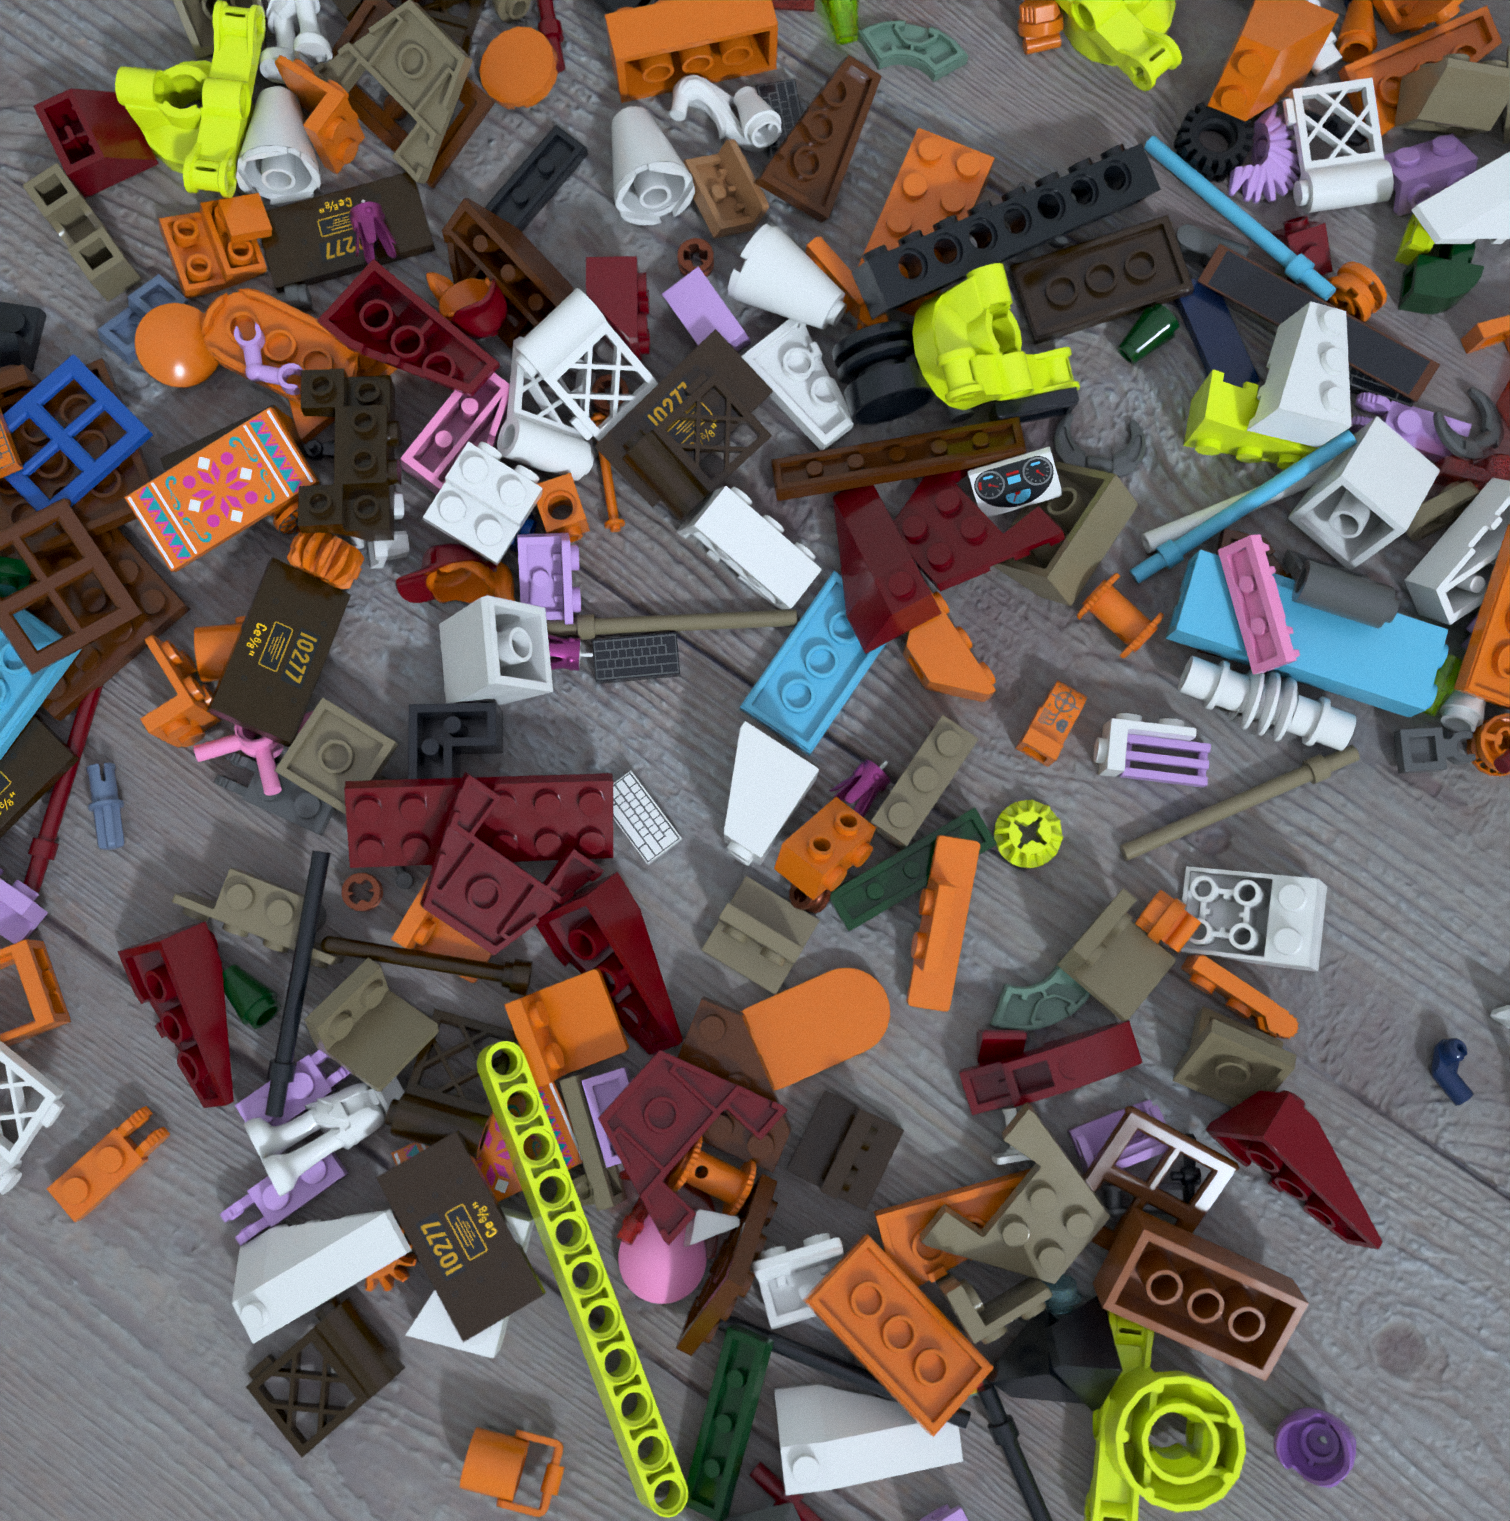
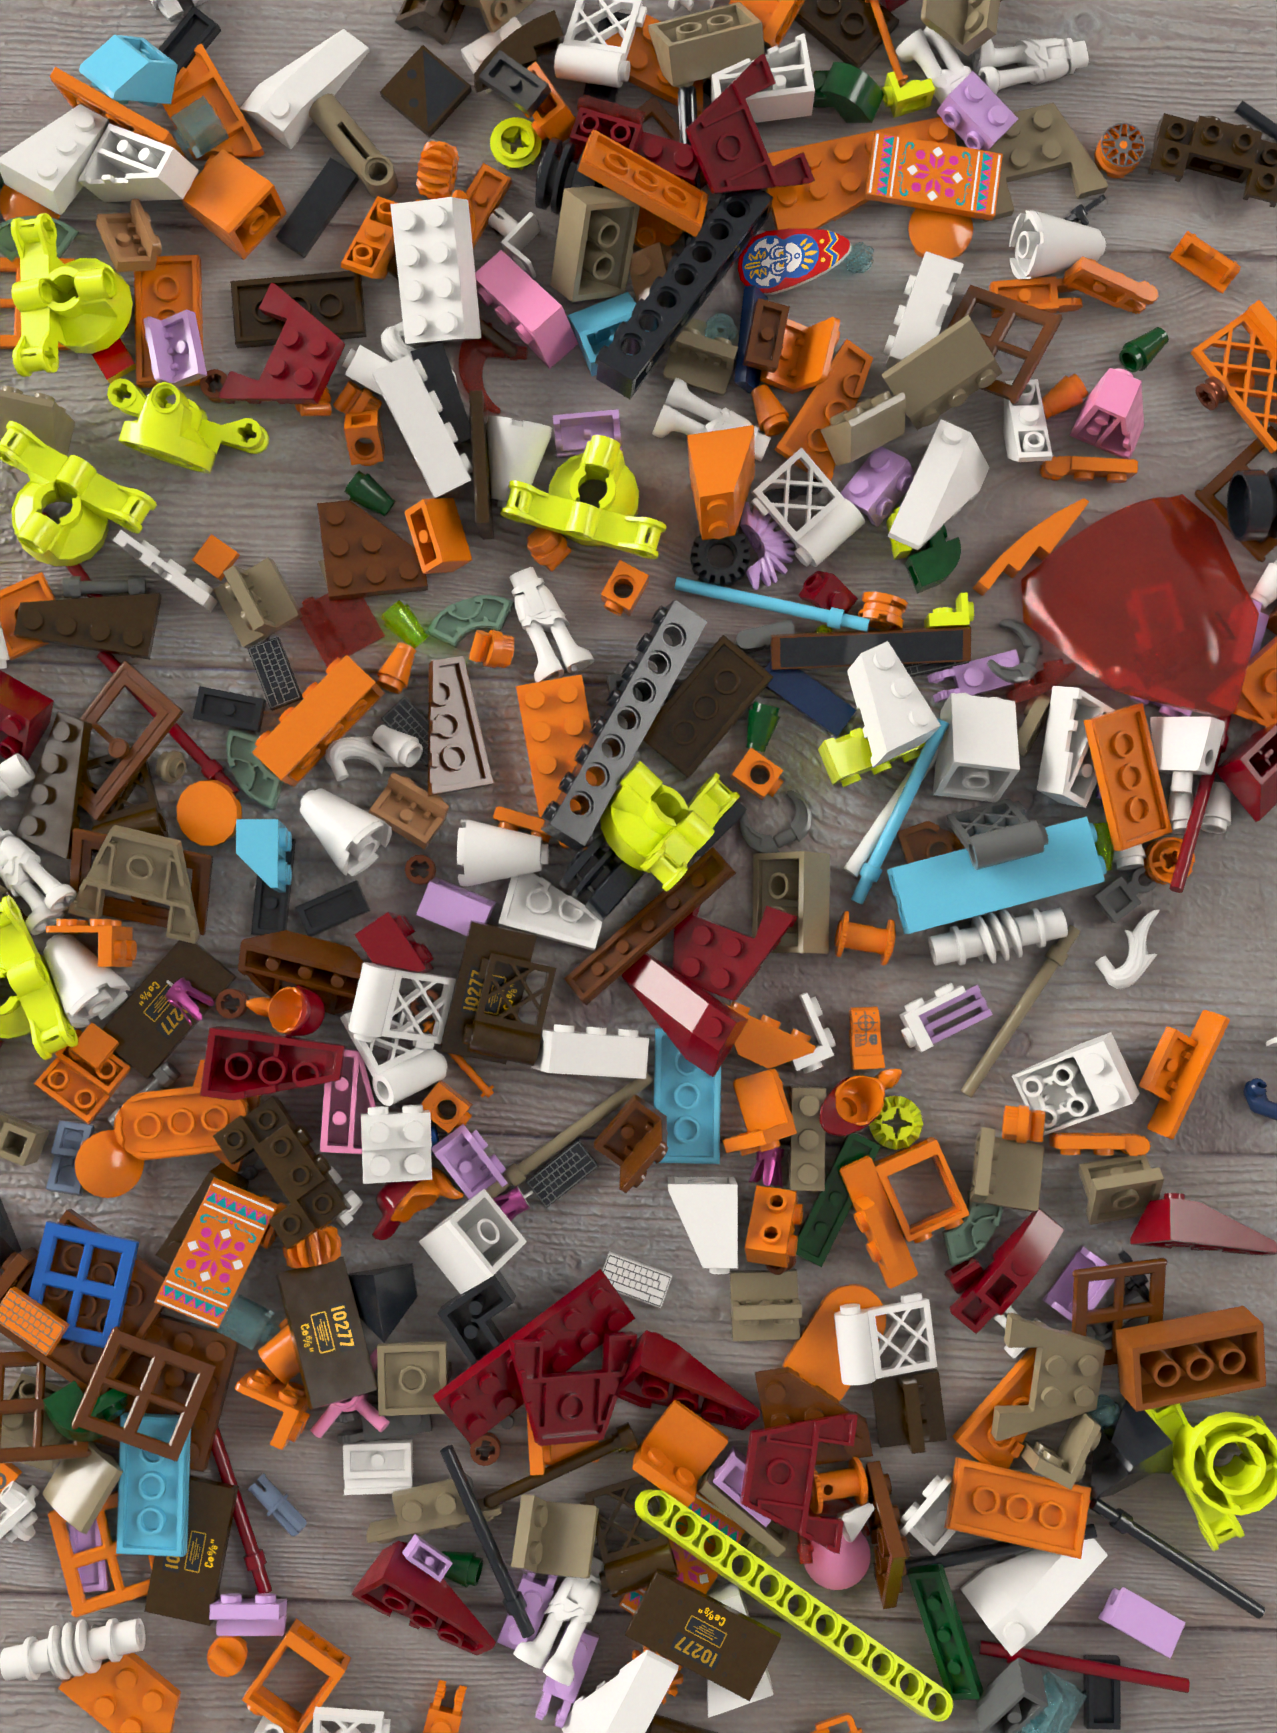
camera: 30 degrees left, 5 degrees up
(205, 594) = (247, 1322): none -> clear light blue brick
(222, 957) = (427, 1557): none -> lavender piece
(237, 833) = (377, 1466): none -> white plate
(257, 371) = (177, 1151): lavender arm -> none
(365, 660) = (384, 1296): none -> black slope
(405, 259) = (228, 1013): none -> copper bush
(553, 124) = (263, 848): none -> medium azure slope
(574, 240) = (333, 908): none -> black tile
(589, 59) = (249, 771): none -> sand green tile
(736, 659) = (634, 1141): none -> reddish brown bracket
(804, 48) = (397, 669): none -> orange cone
(841, 1033) = (859, 1337): none -> white piece
(894, 723) = (763, 1111): none -> orange bracket
(916, 86) = (492, 649): none -> orange piece
(989, 86) = (540, 613): none -> white piece
(996, 705) = (824, 1036): none -> white bracket
(1002, 776) = (856, 1102): none -> orange hair
(1015, 482) = (739, 892): slope -> none
(1024, 876) = (907, 1157): none -> orange window
(1100, 97) = (626, 575): none -> orange brick
(1113, 362) = (755, 760): none -> orange brick
(1257, 604) = (954, 886): bright pink plate -> none
(1377, 973) = (1179, 1069): none -> orange bracket
(1404, 827) = (1137, 960): none -> white piece
(1417, 339) = (947, 618): none -> neon yellow bracket

